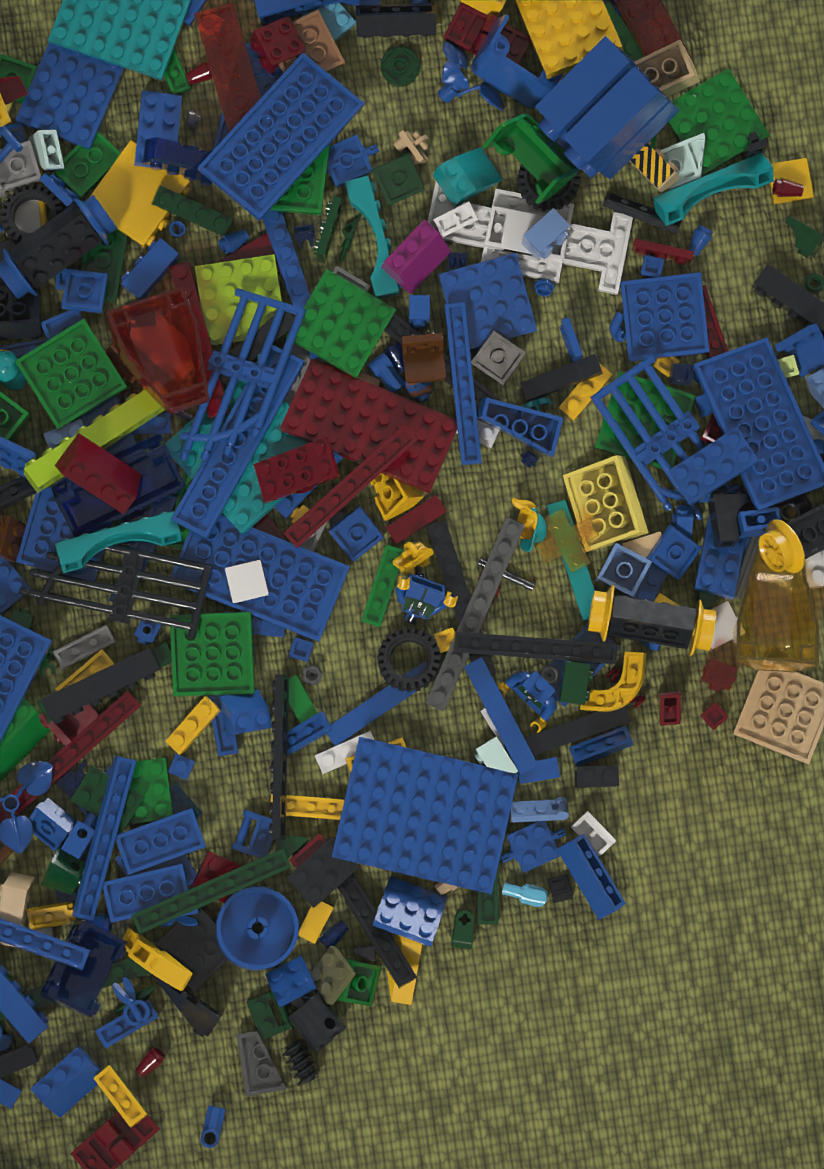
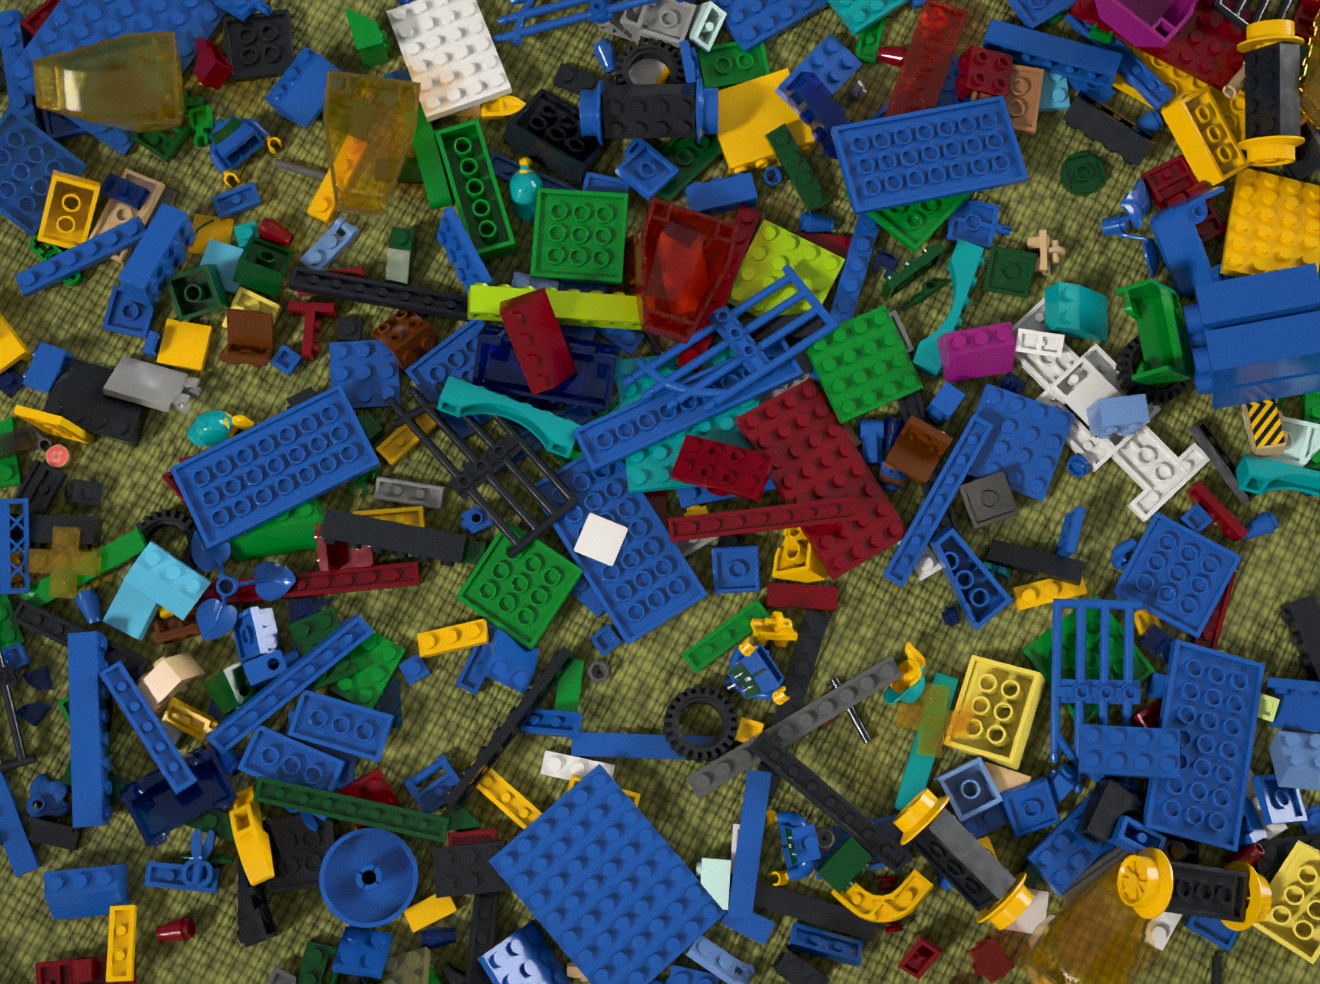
camera: 40 degrees right, 5 degrees down
(52, 612) = (403, 440): none -> yellow plate

